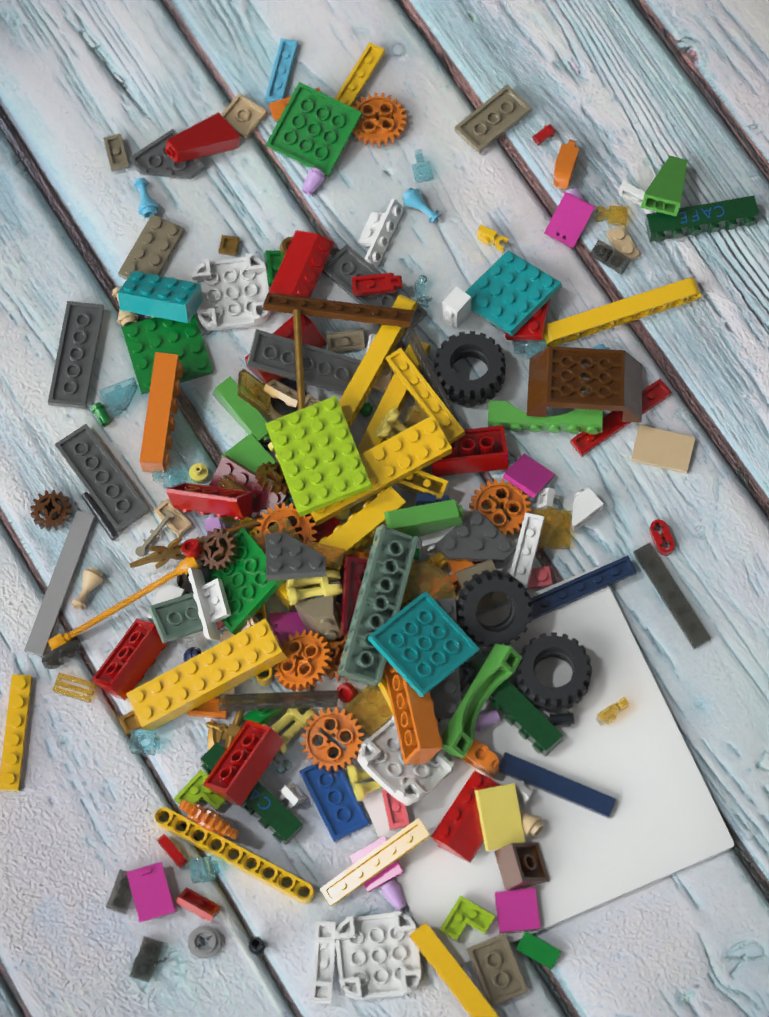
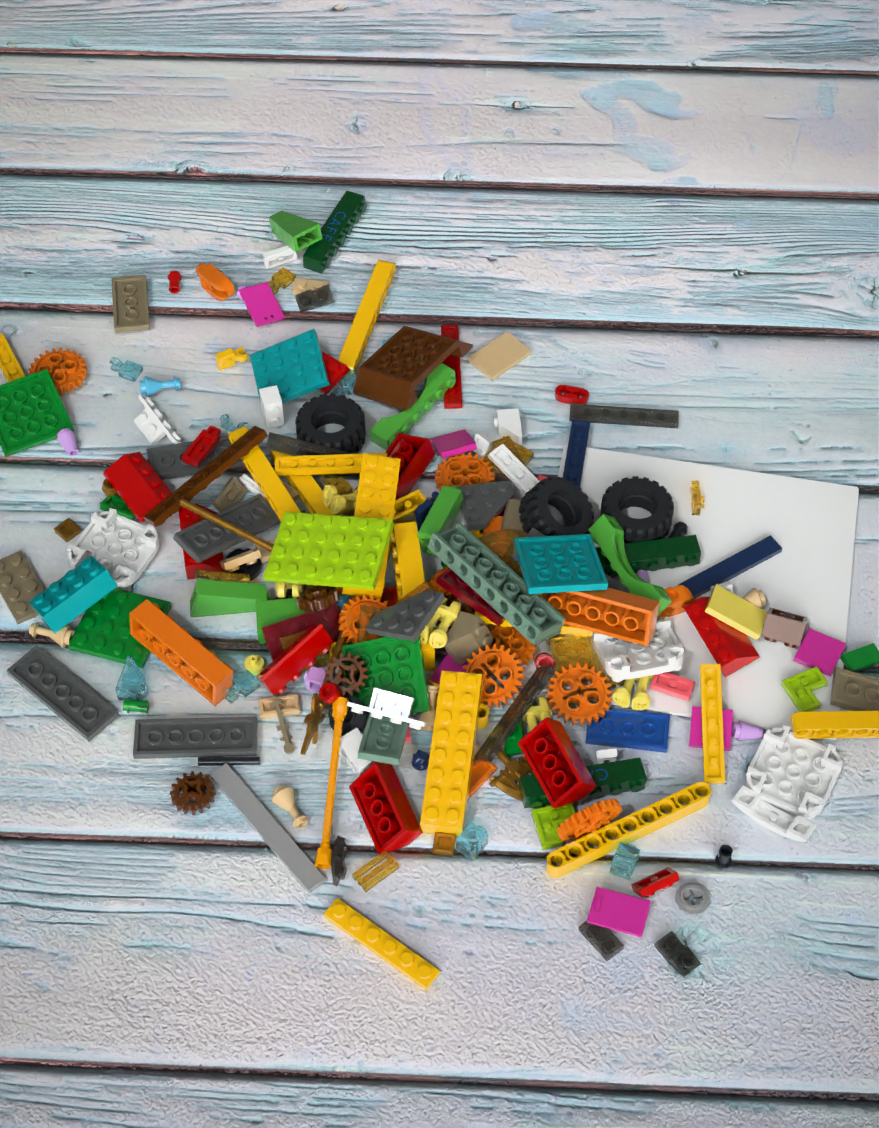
camera: 60 degrees left, 15 degrees down
(172, 851) = (590, 876): red beam -> none

